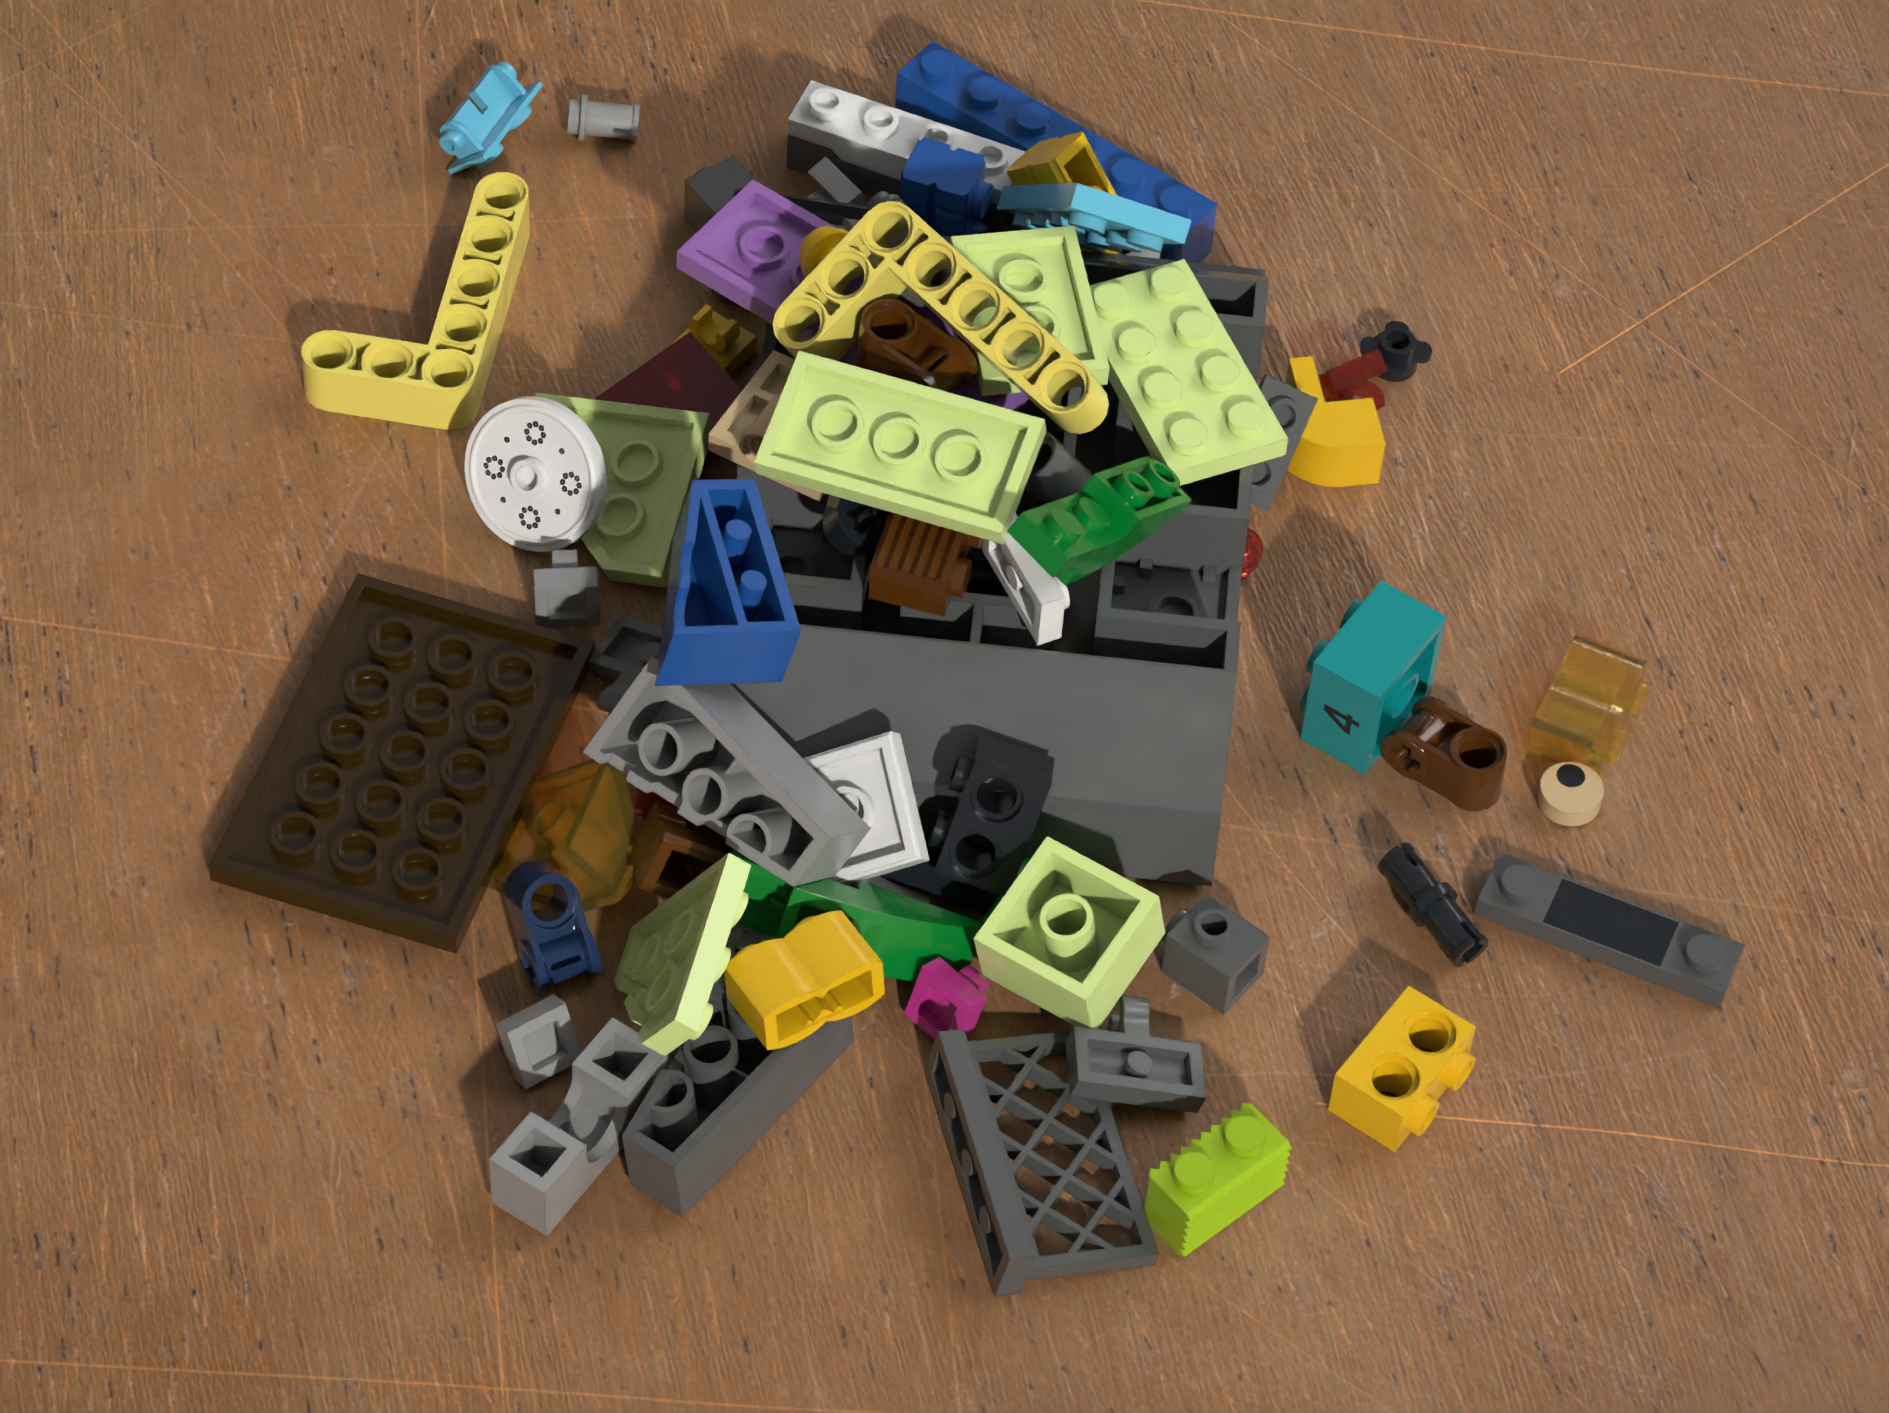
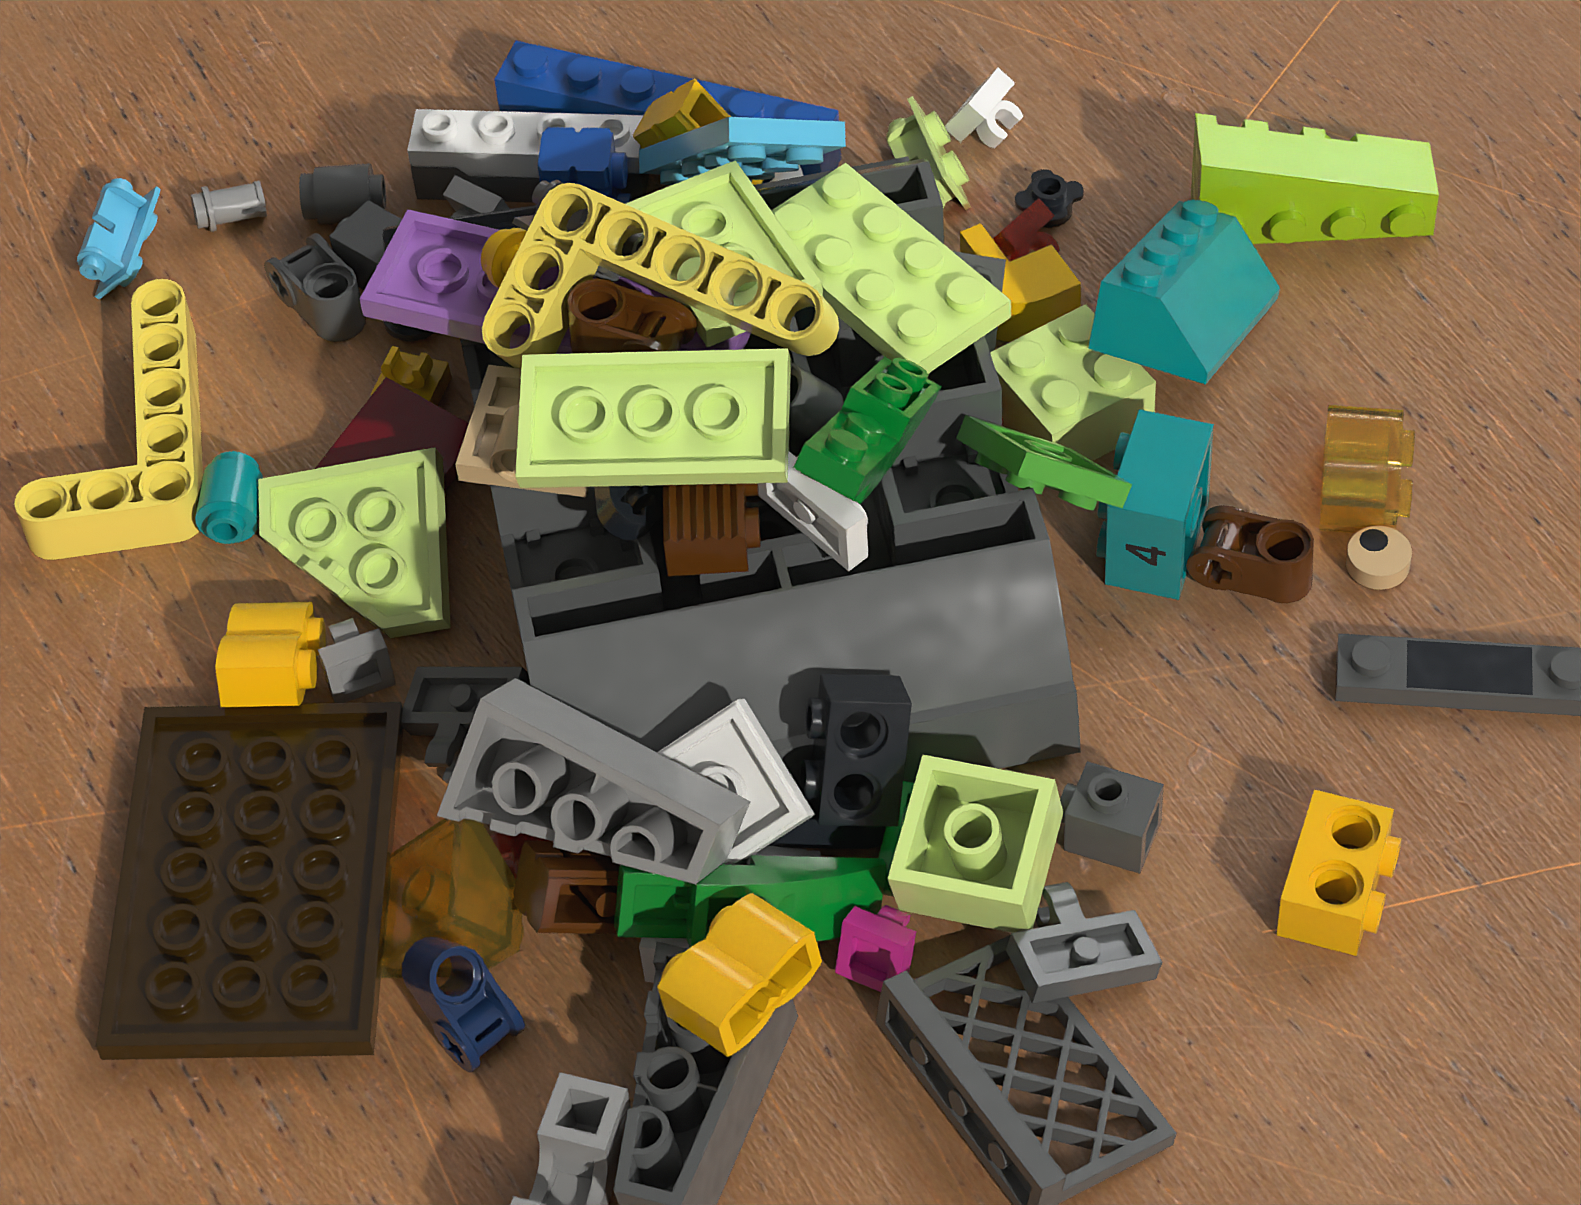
camera: 10 degrees left, 0 degrees up
(488, 559) = (269, 654): none -> yellow brick
(502, 383) = (229, 498): none -> teal brick
(535, 474) = (287, 547): white shield -> none
(539, 1041) = (490, 1118): light grey tile -> none
(657, 224) = (319, 289): none -> dark grey piece
(680, 954) = (605, 988): yellowish green plate -> none
(711, 137) = (339, 191): none -> dark grey brick
(725, 592) = (531, 613): blue wedge -> none
(1216, 1179) = (1204, 1040): lime brick -> none
(1263, 600) = (1041, 464): none -> bright green plate
(1293, 259) = (923, 138): none -> yellowish green hinge
(1332, 542) = (1070, 392): none -> yellowish green brick
(1364, 245) = (983, 108): none -> white tile
(1432, 904) = (1297, 703): black pin -> none
(1478, 484) = (1184, 294): none -> teal slope
(1648, 416) = (1313, 184): none -> lime wedge

